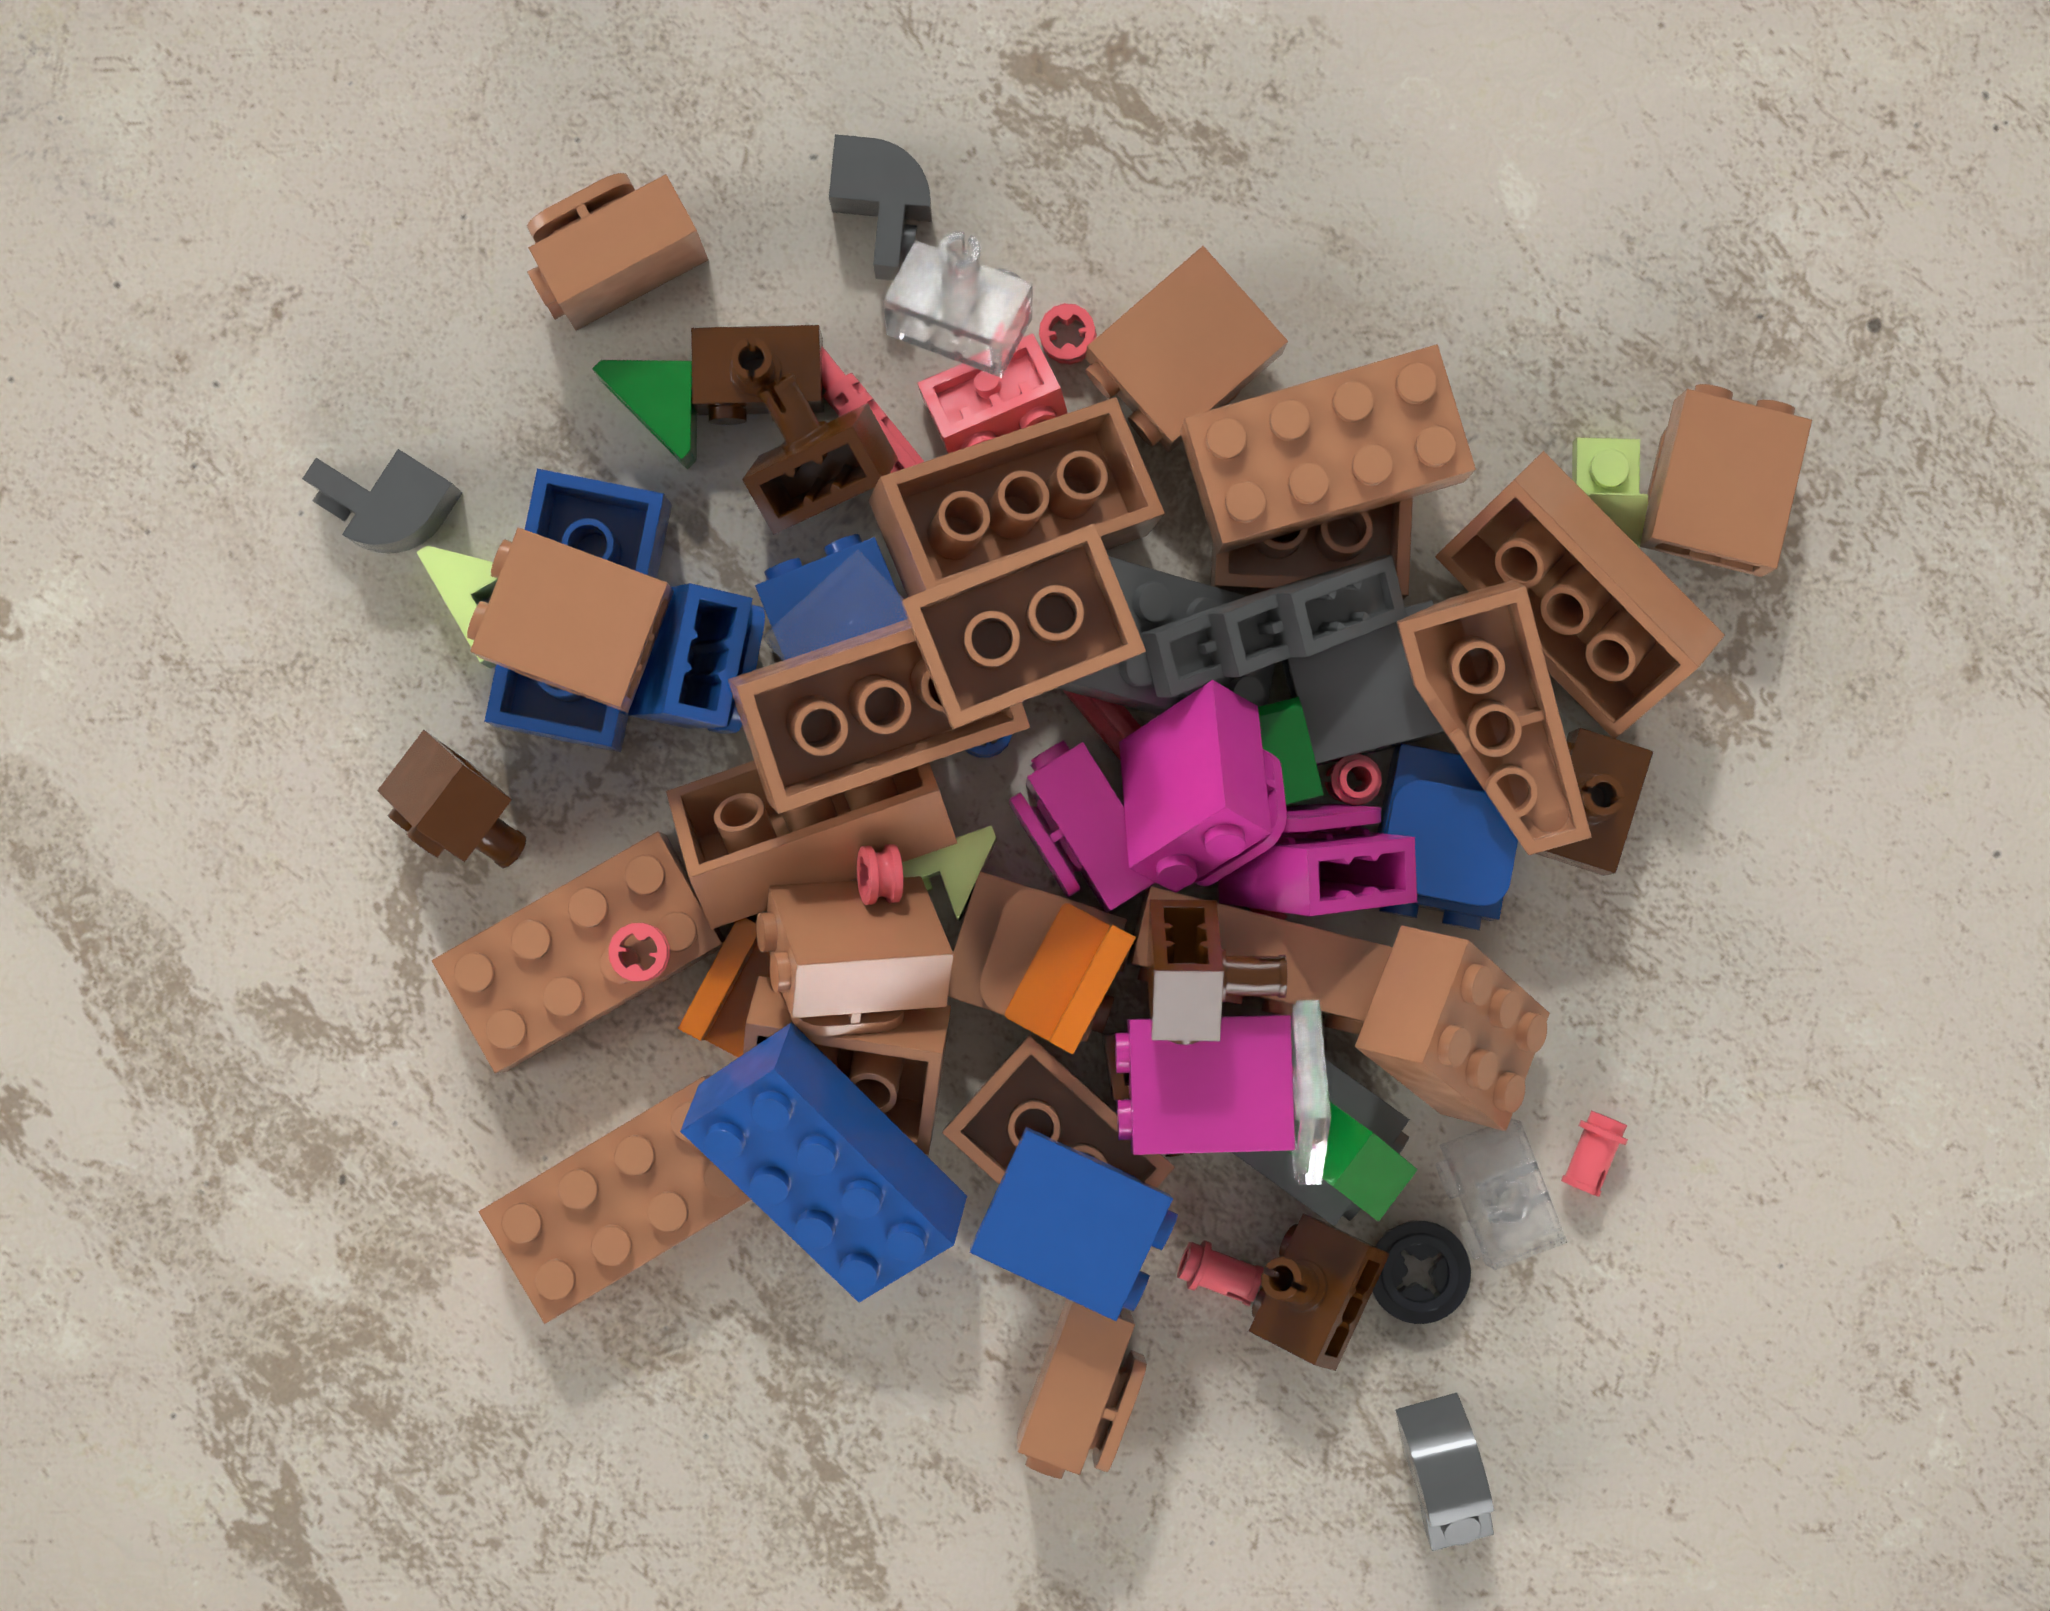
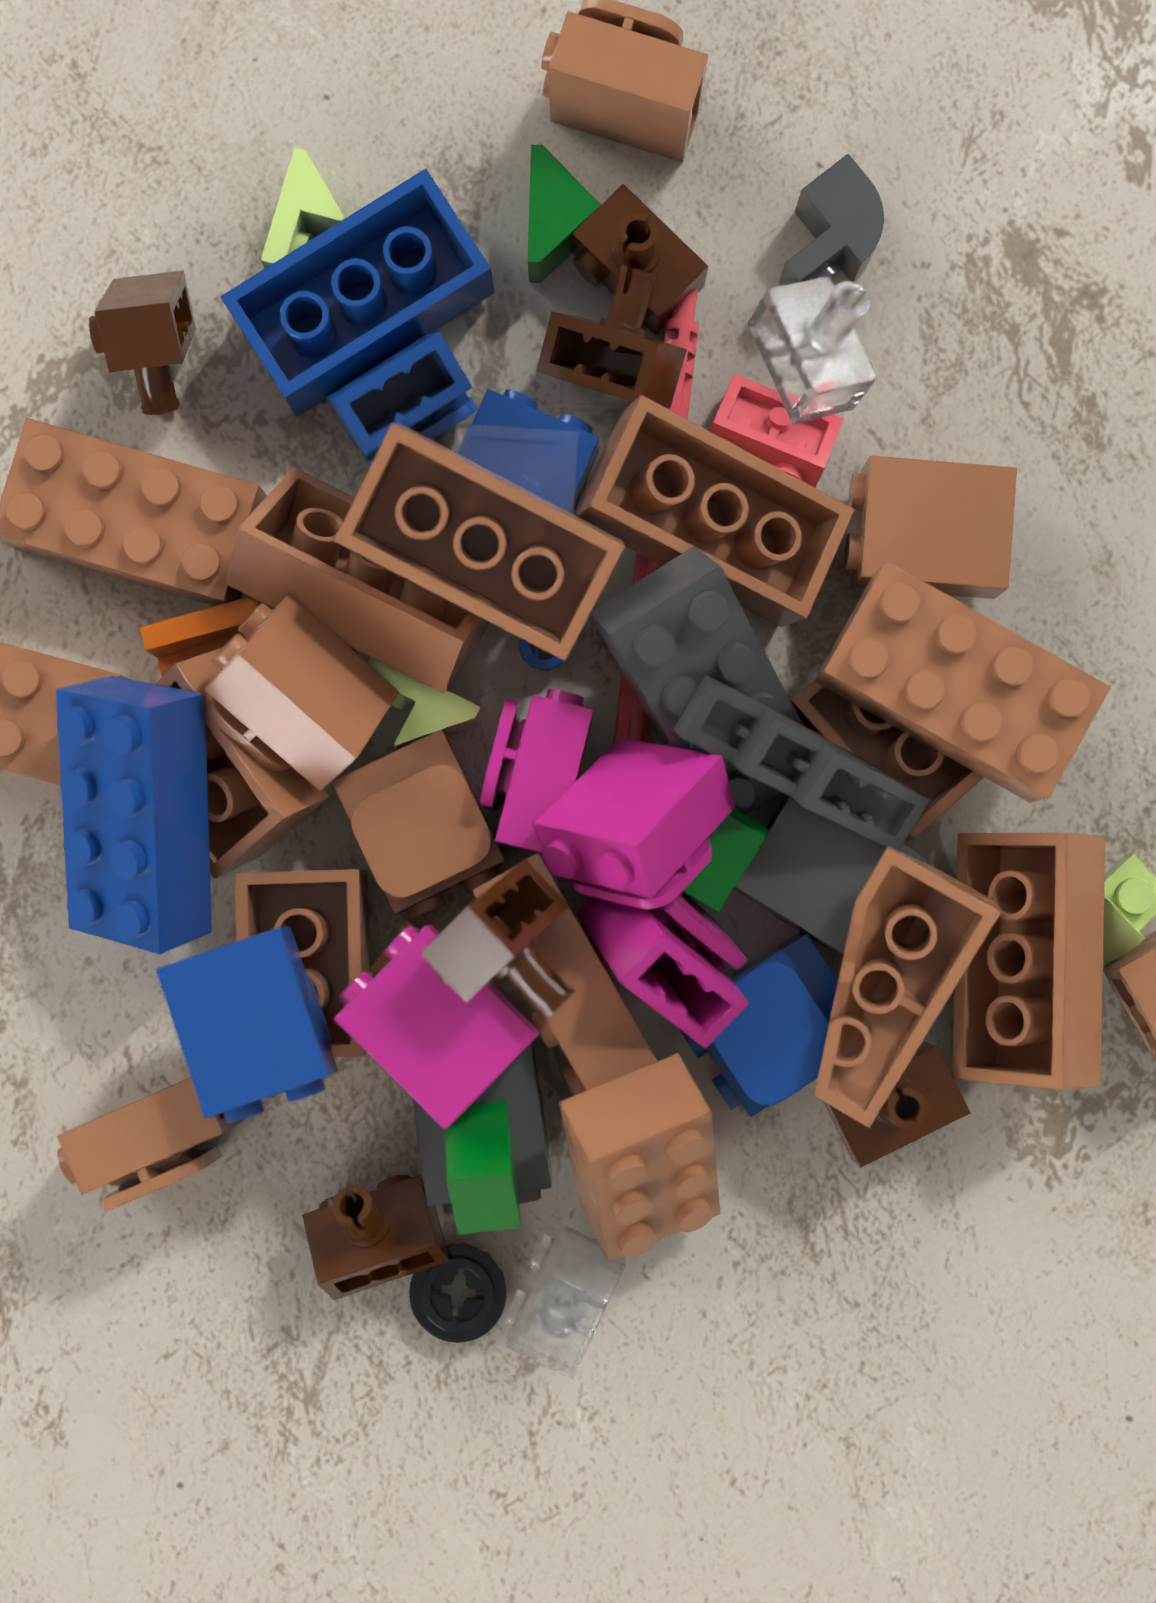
camera: 55 degrees right, 0 degrees up
(398, 511) = (316, 111): dark grey brick -> none
(569, 619) = (338, 278): nougat brick -> none
(636, 971) = (148, 530): coral bush -> none
(880, 874) = (367, 658): coral bush -> none
(1023, 626) = (624, 577): nougat brick -> none
(1066, 315) = (878, 430): coral bush -> none
(1069, 977) = (422, 857): orange panel -> none
(1219, 1272) = (327, 1155): coral pin -> none
(1309, 1092) = (495, 1100): clear tile -> none
(1364, 770) = (764, 927): coral pin -> none
(1446, 1471) = (337, 1443): dark grey brick -> none
(1594, 1153) = (655, 1336): coral pin -> none

